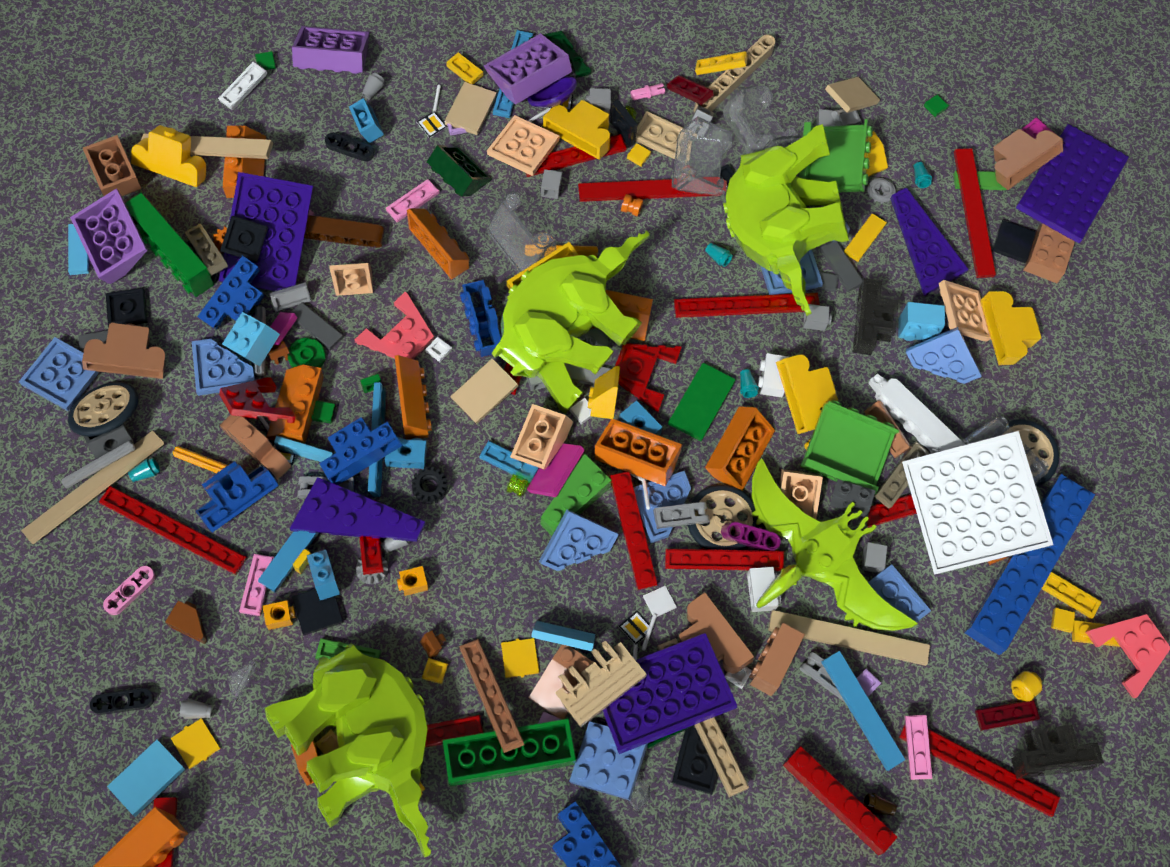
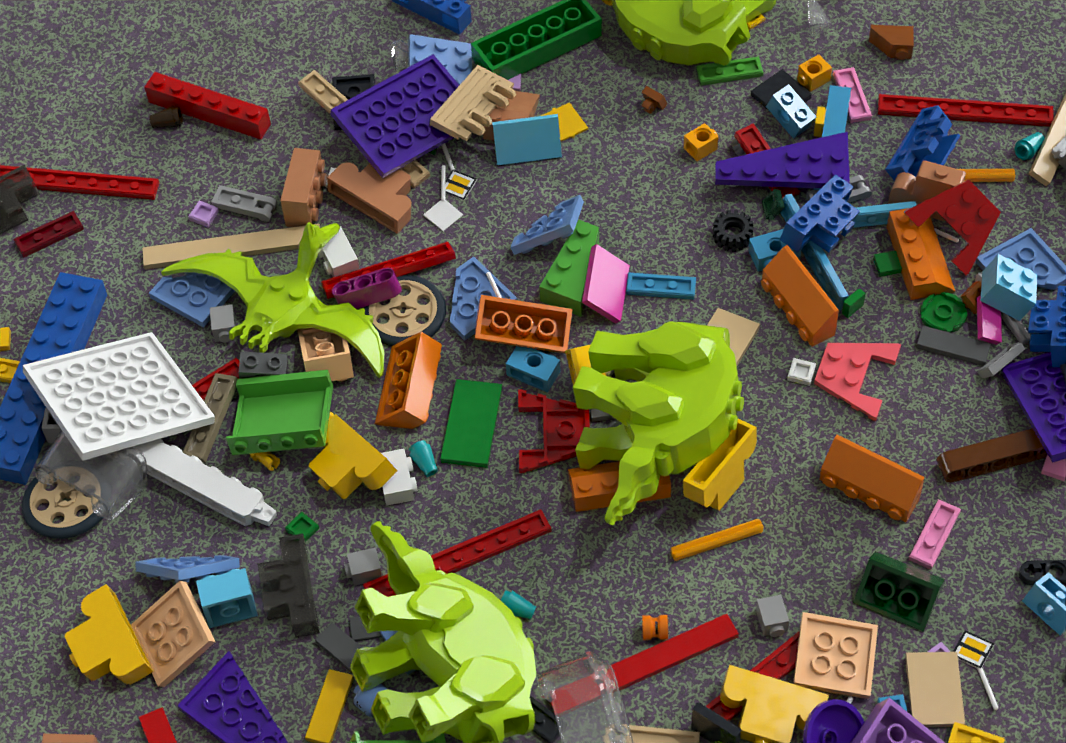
camera: 170 degrees right, 10 degrees down
(129, 582) = (967, 43): bright pink beam -> none
(352, 279) = (944, 393): light nougat slope -> none
(385, 494) = (773, 204): none -> clear green tile
(434, 671) = (638, 83): yellow tile -> none
(452, 729) = (599, 47): red tile -> none
(482, 319) = (774, 415): blue piece -> none
(491, 696) = (575, 71): nougat tile -> none
(514, 238) = (742, 503): clear windscreen -> none
(517, 485) = (640, 260): clear neon green wheel -> none
(541, 436) = (635, 305): light nougat slope -> none
(633, 531) = (497, 259): red plate -> none
(638, 155) = (678, 710): yellow tile -> none
(681, 515) = (449, 284): light grey plate -> none
(852, 367) = (302, 524): none -> green tile
(863, 711) = (203, 181): dark azure tile -> none
(899, 443) = (240, 465): nougat tile -> none
(918, 747) = (138, 172): bright pink tile -> none
(1026, 686) = (32, 260): yellow head -> none

